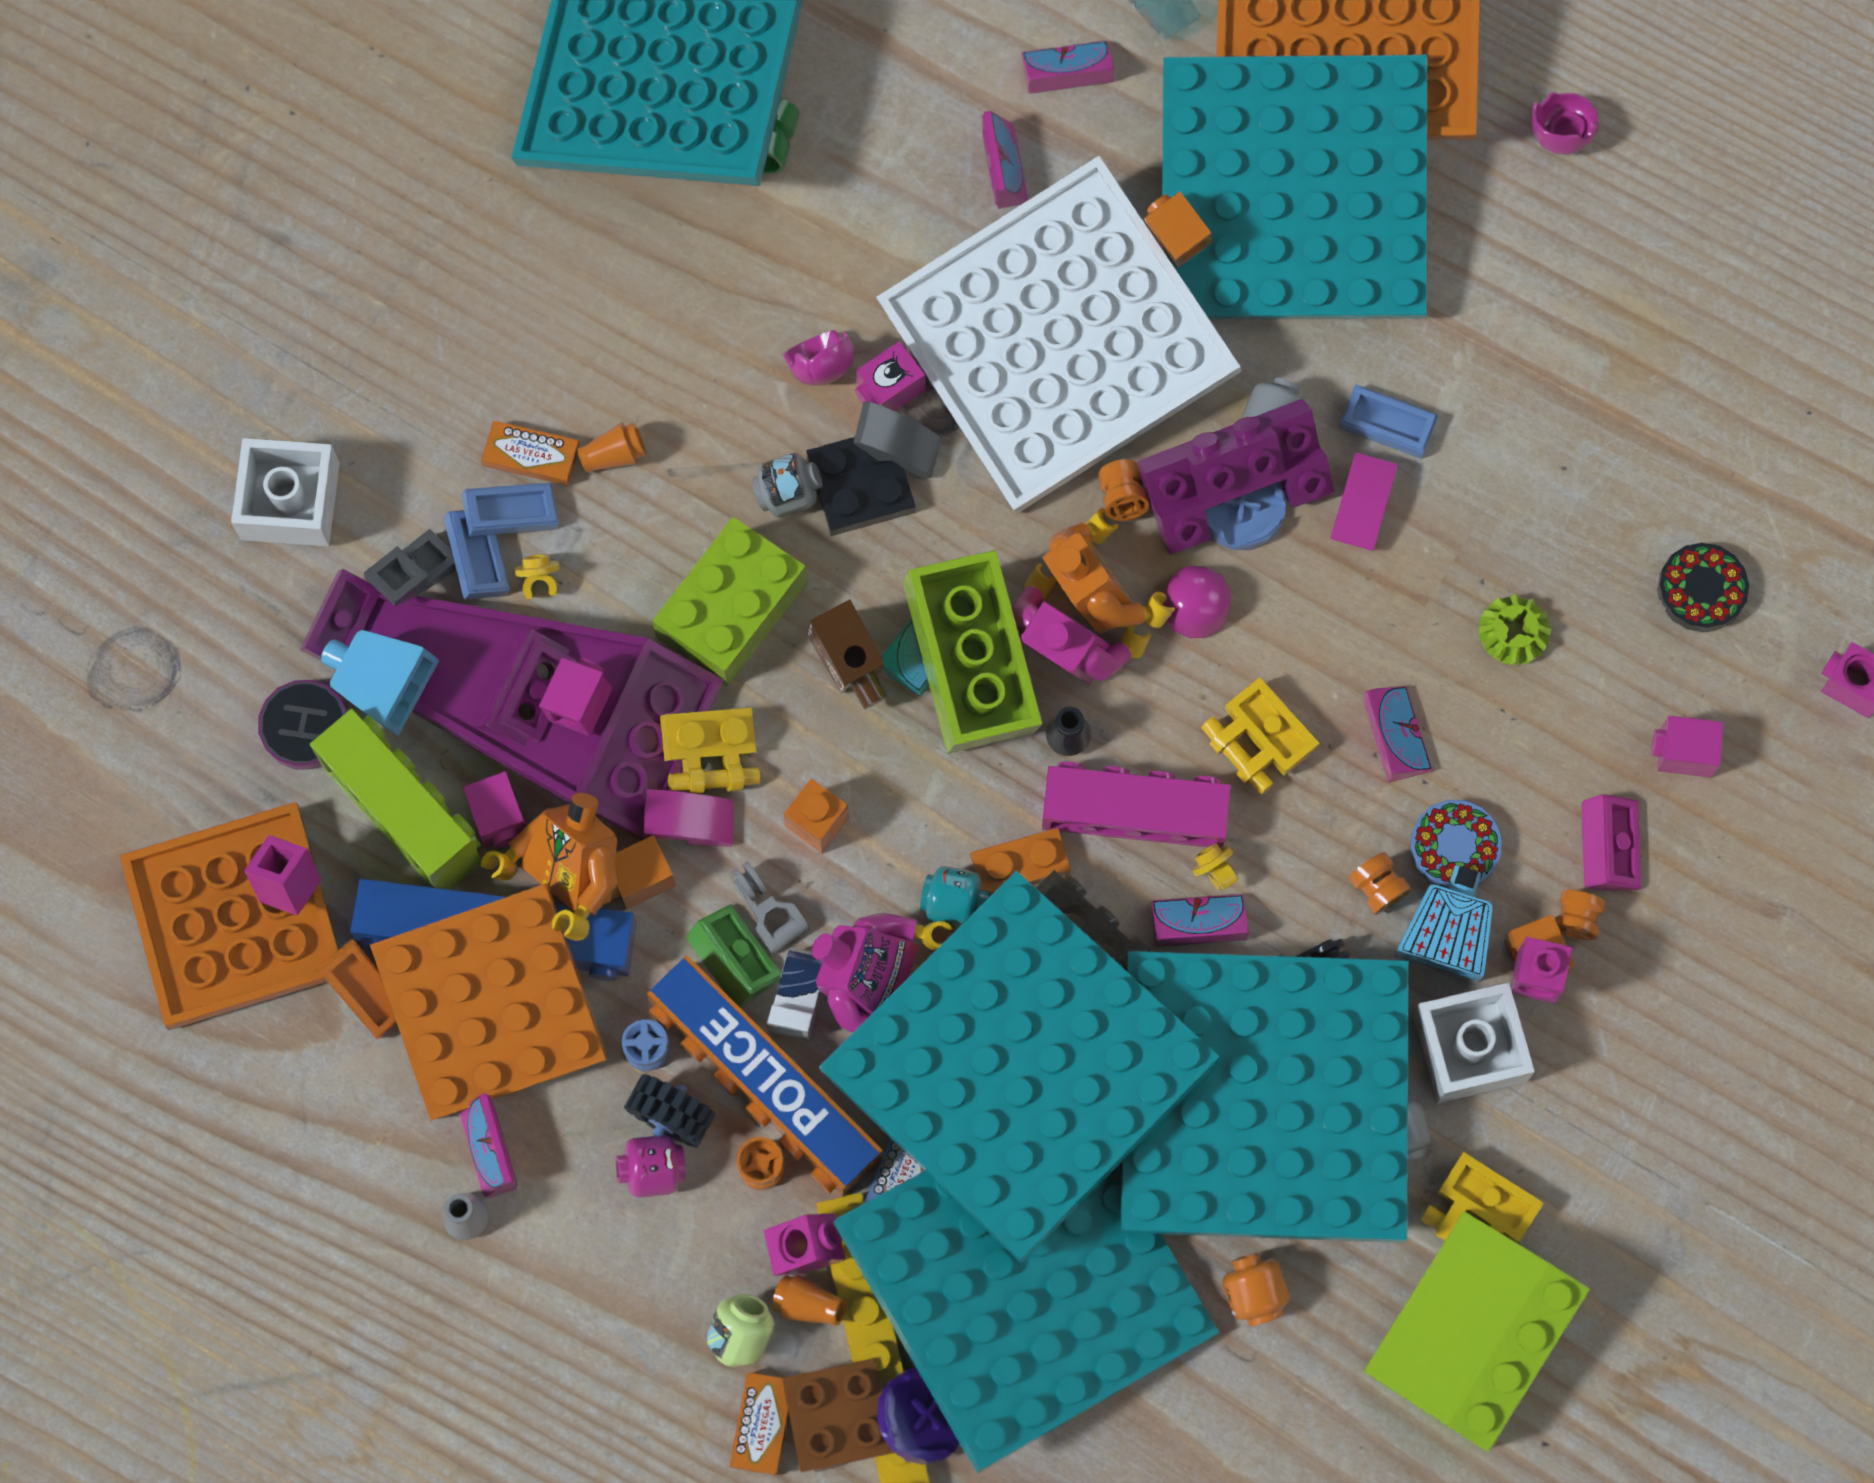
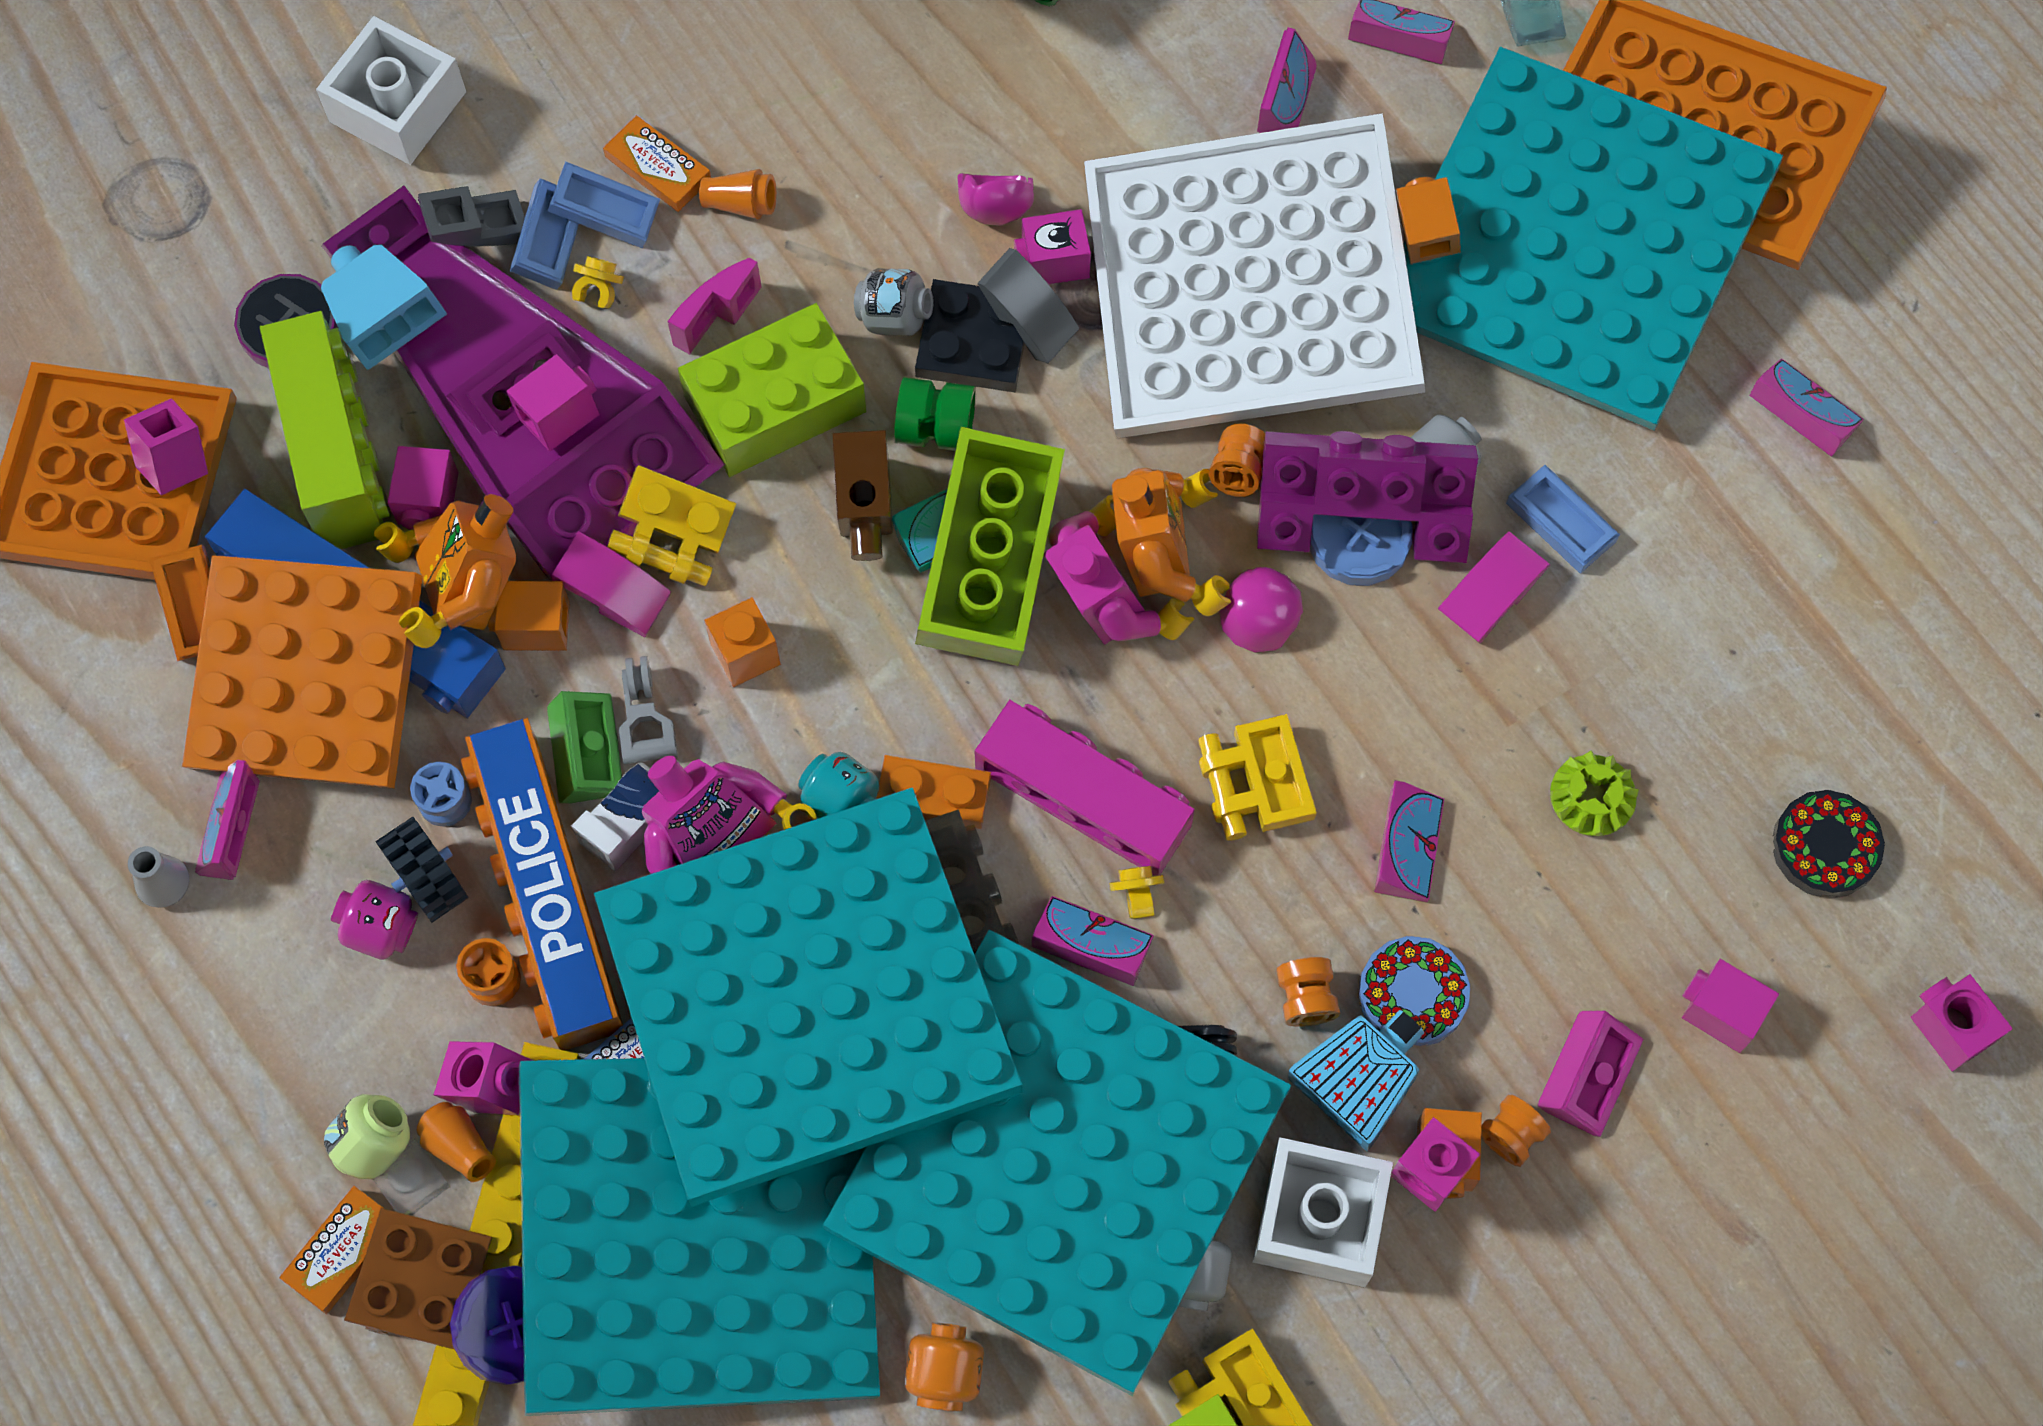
camera: 25 degrees right, 5 degrees down
(647, 543) = (721, 296): none -> dark pink slope
(869, 562) = (933, 413): none -> green wheel
(1066, 740) = (1053, 678): black cone -> none
(1529, 244) = (1805, 406): none -> dark pink slope
(1564, 123) = (1904, 299): dark pink hair -> none

